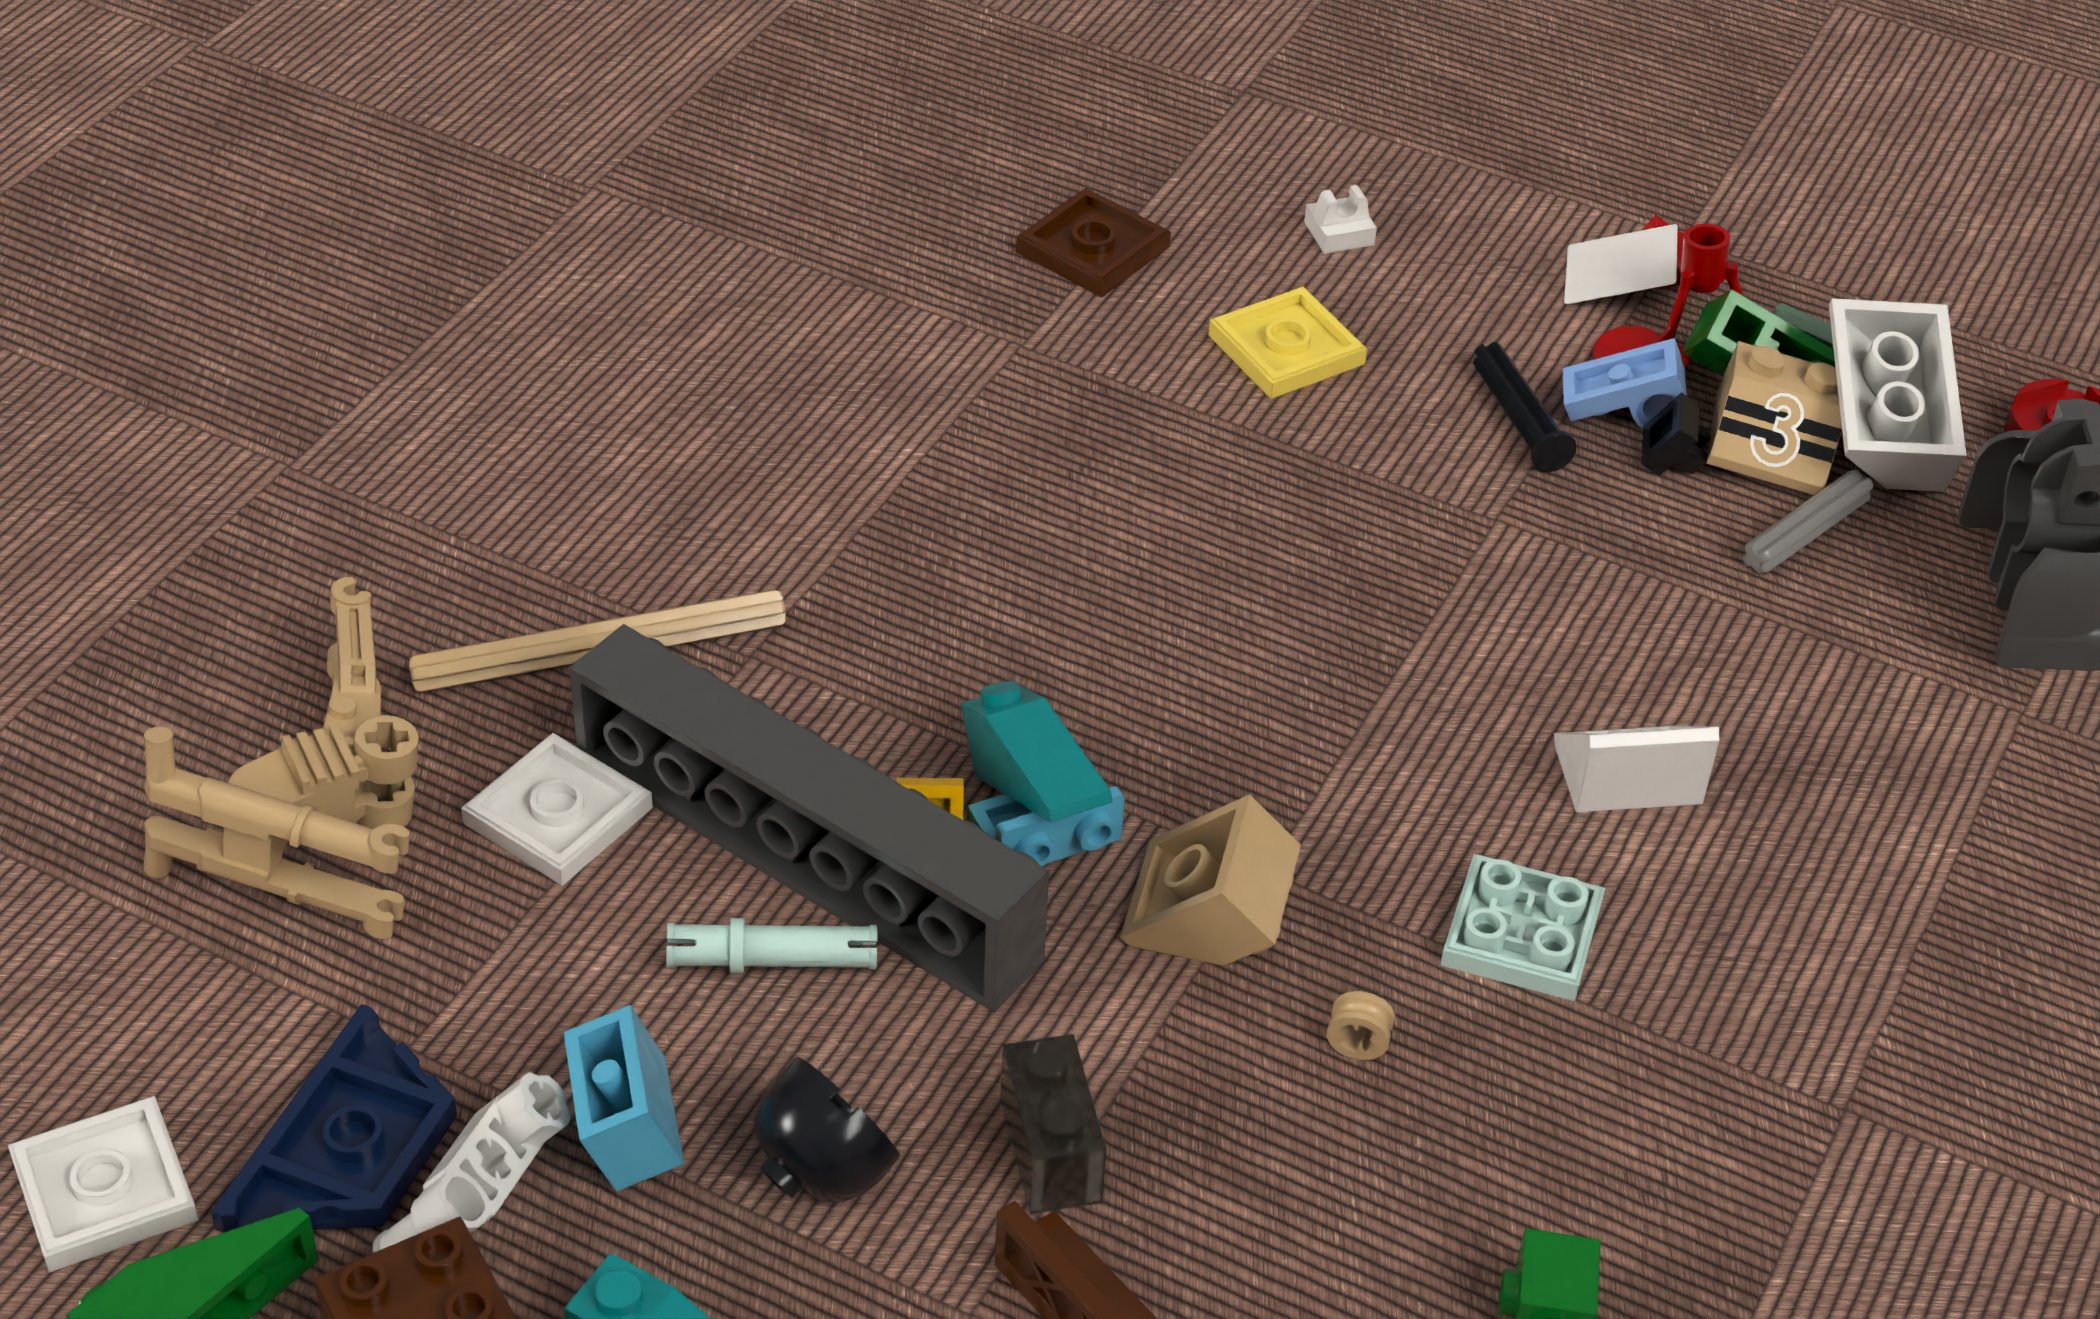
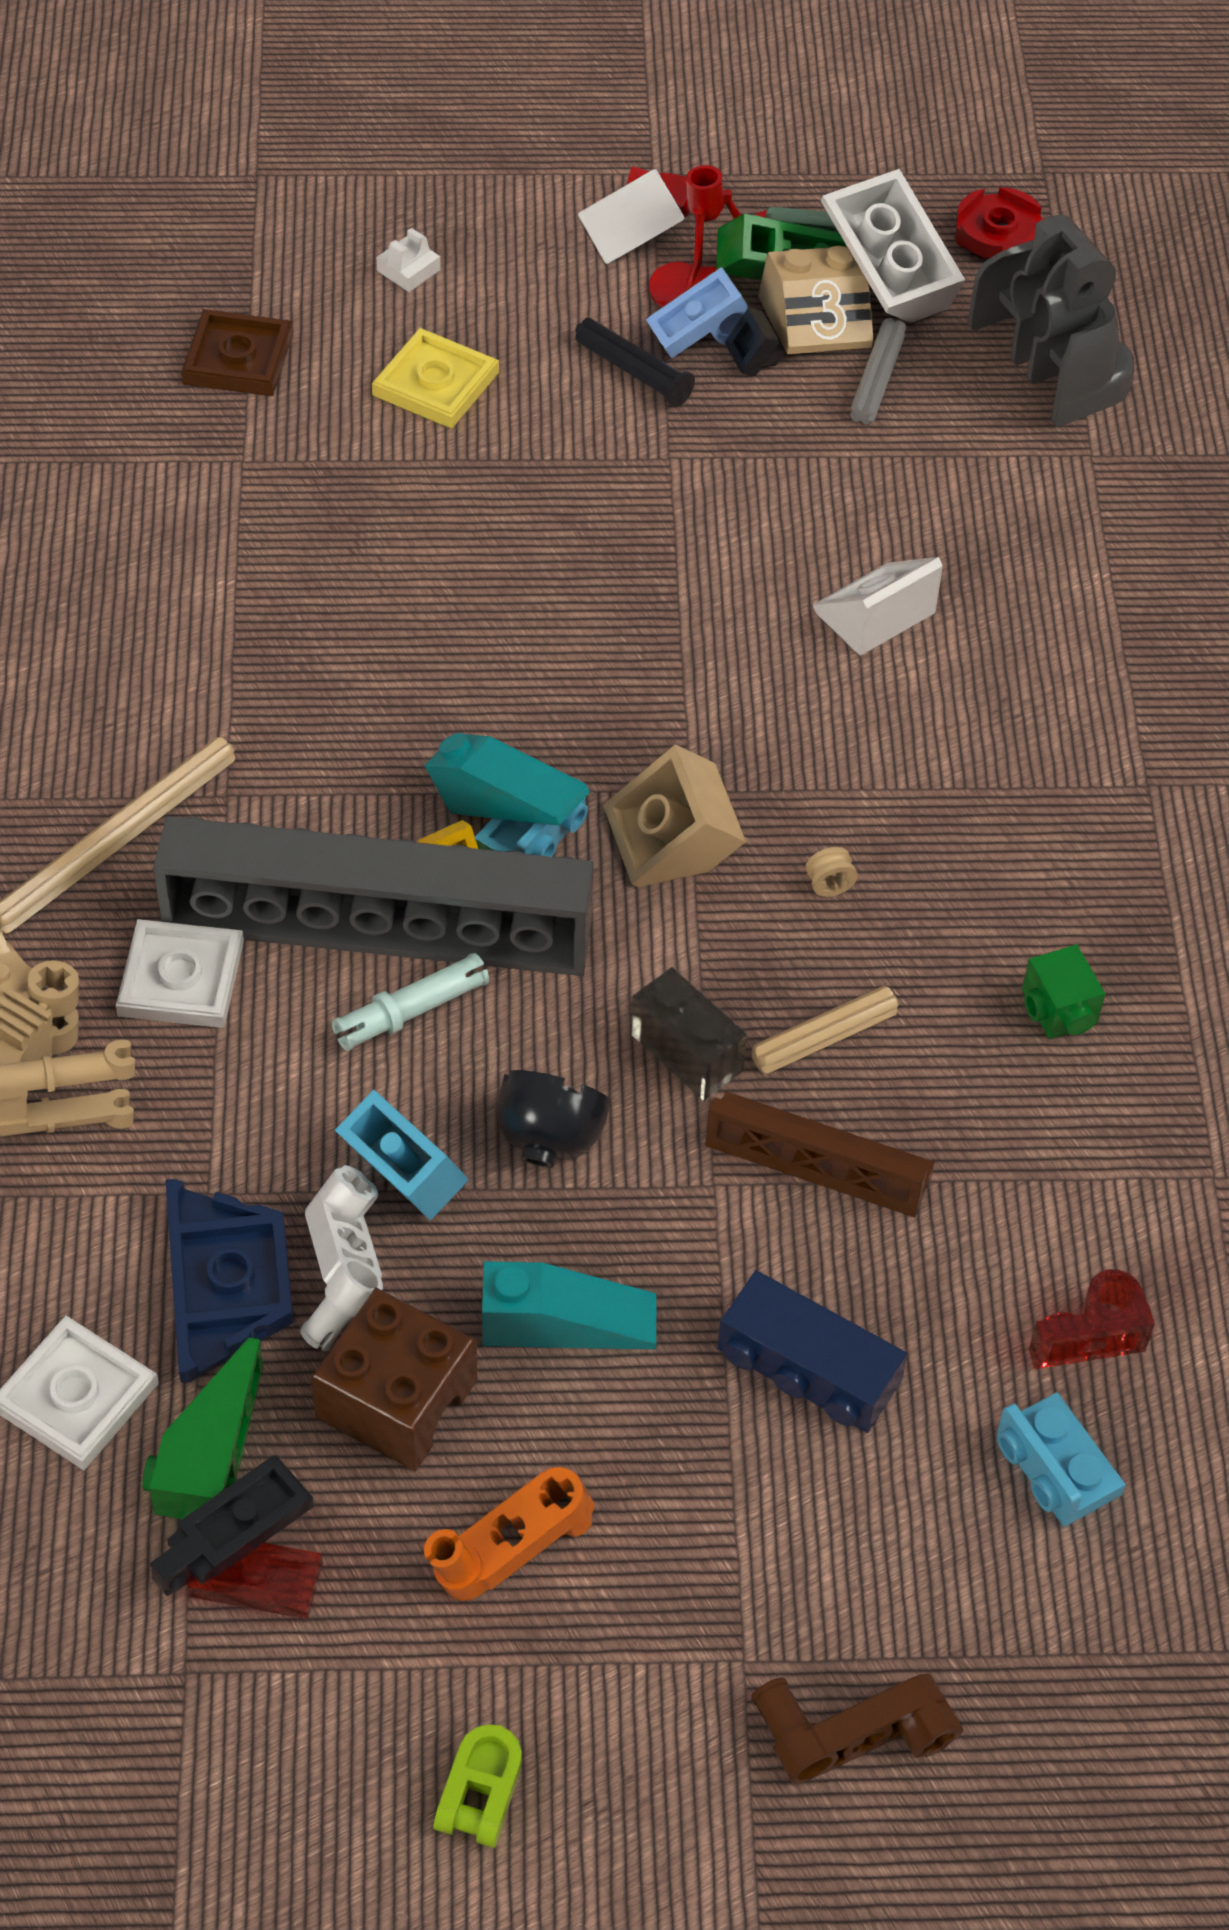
camera: 30 degrees left, 10 degrees up
(1228, 1199) = (824, 1029): none -> tan axle
(1523, 927) = (882, 753): light aqua tile -> none

